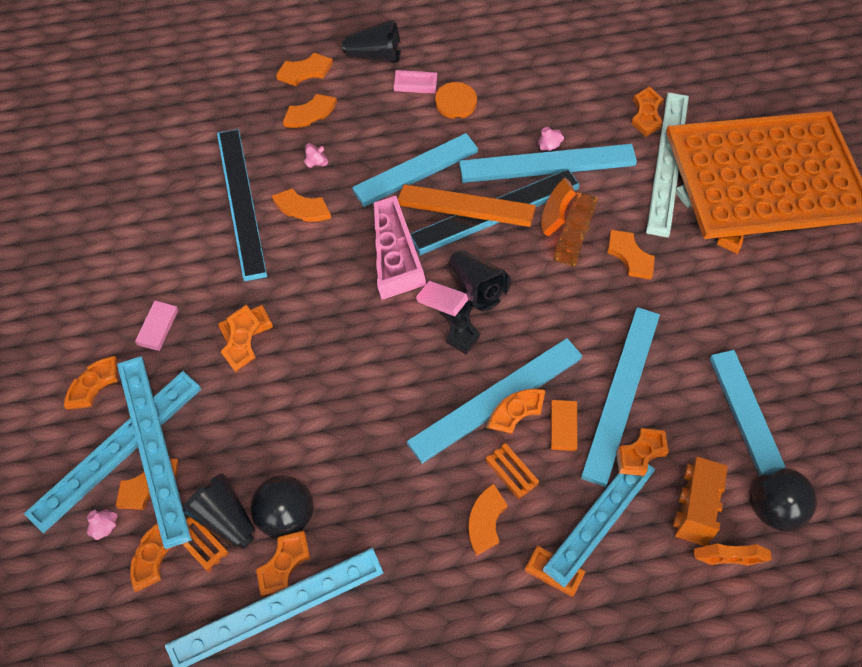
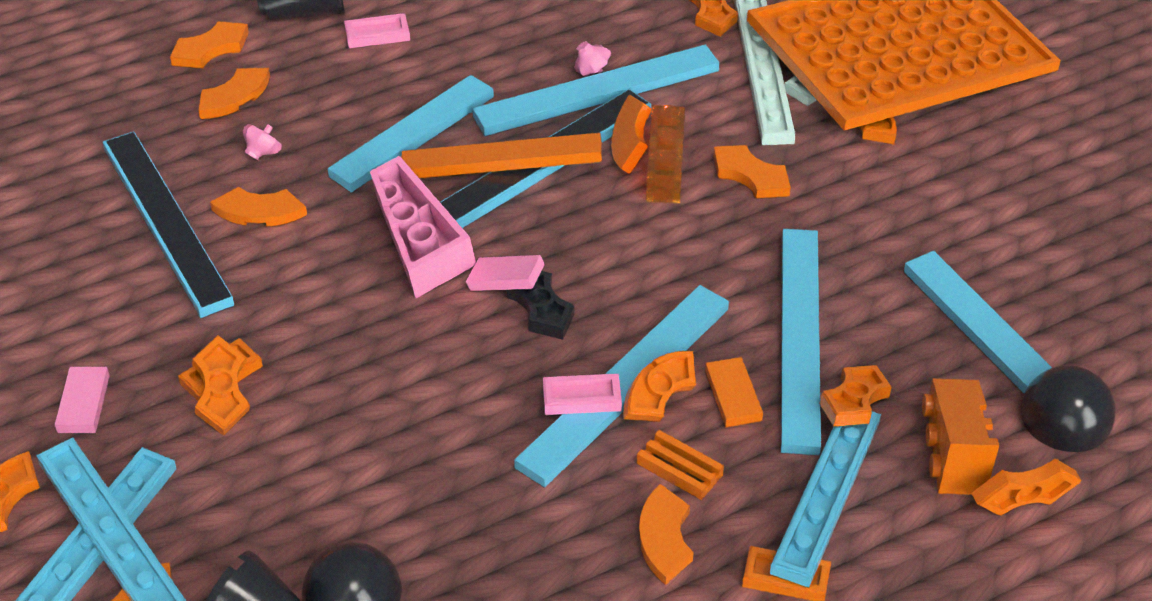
camera: 15 degrees left, 15 degrees down
(456, 100) = (442, 41): orange tile -> none
(463, 404) = (582, 394): none -> bright pink tile
(479, 279) = (557, 235): black cone -> none

